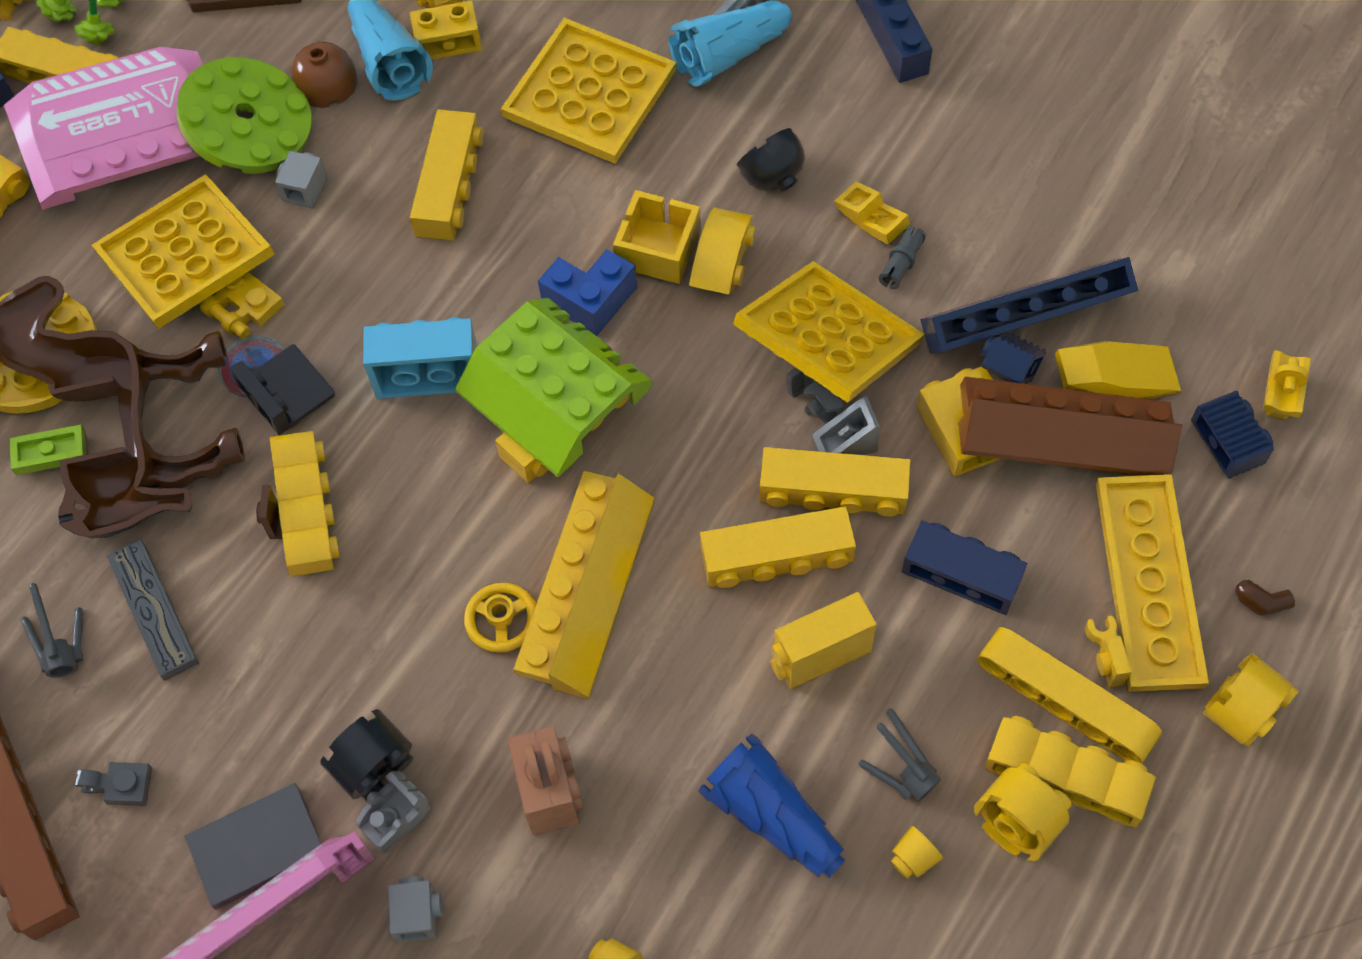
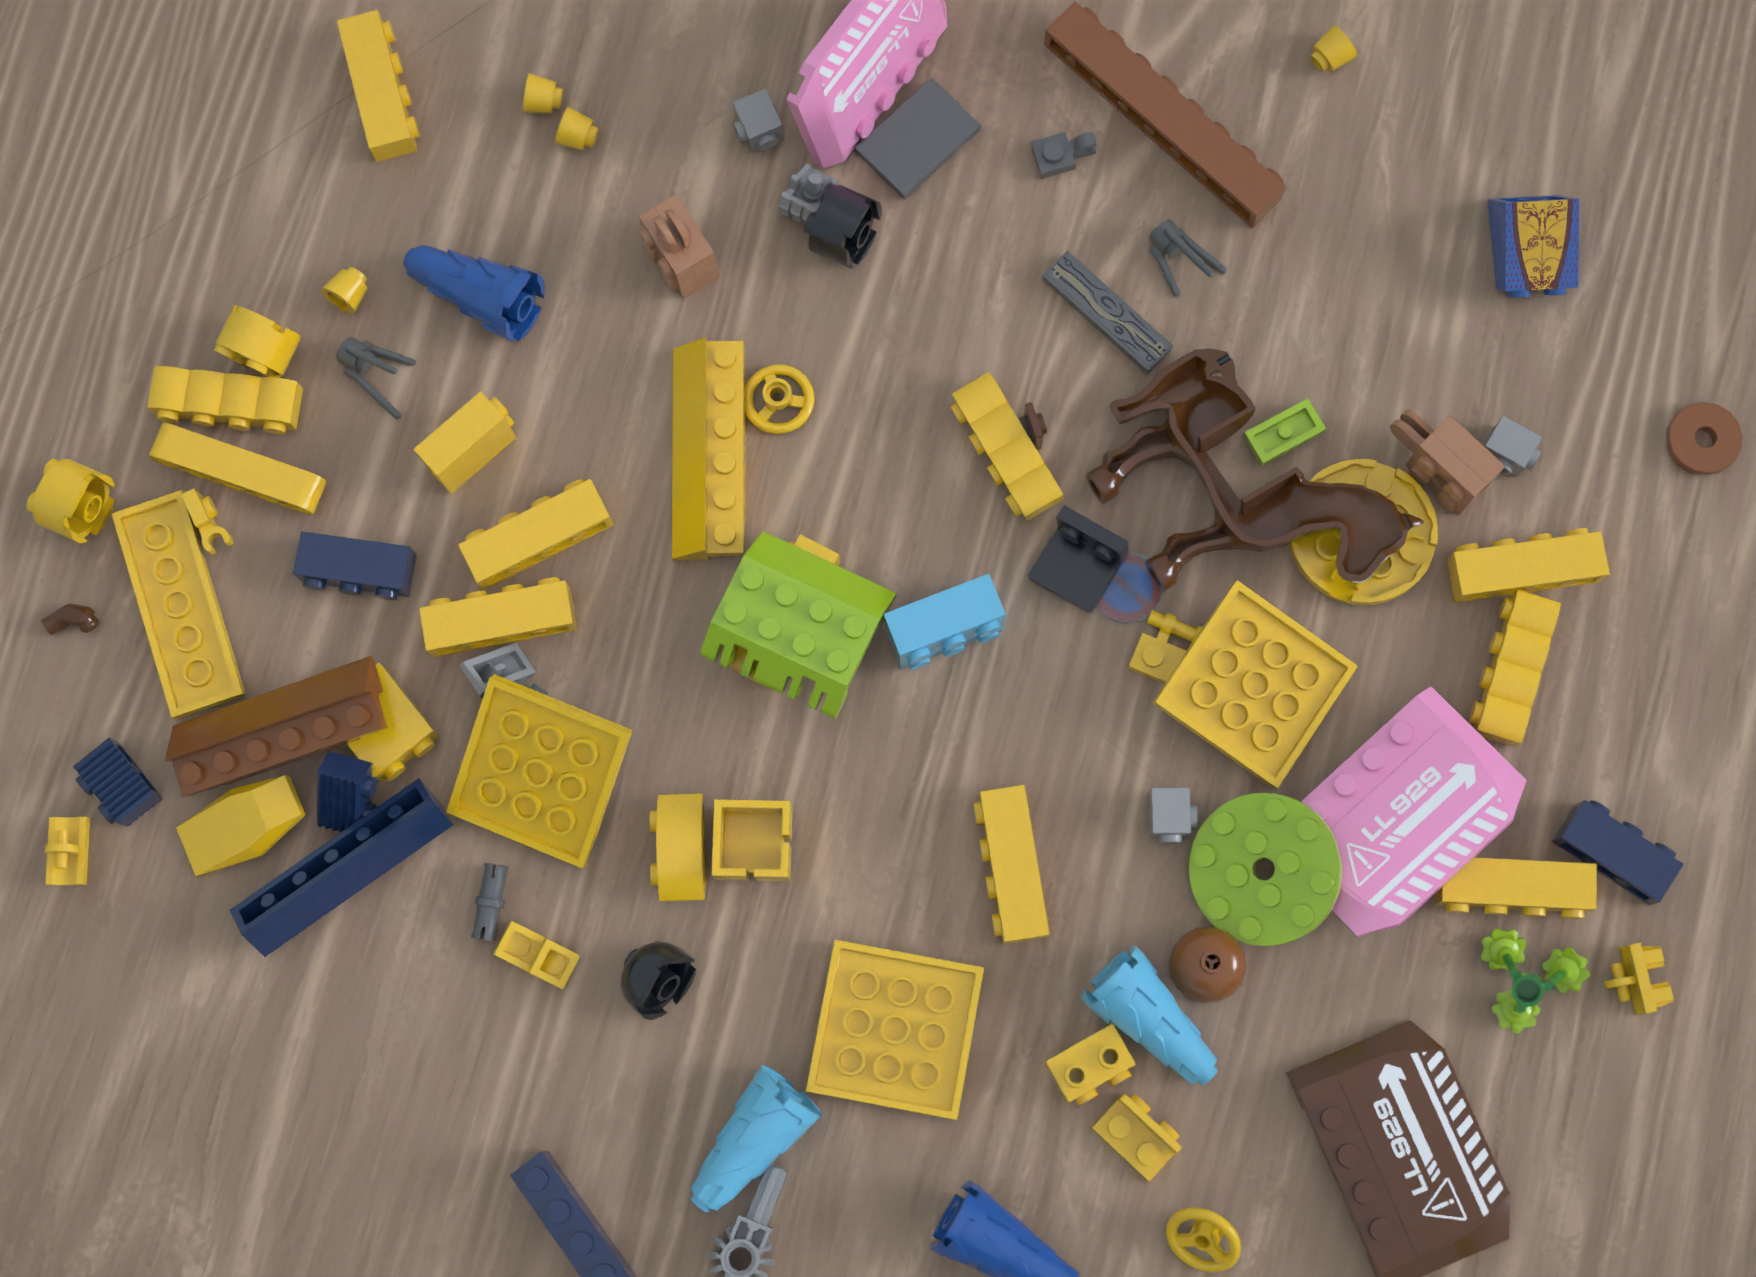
camera: 165 degrees right, 15 degrees up
(593, 295) = (804, 750): blue brick -> none

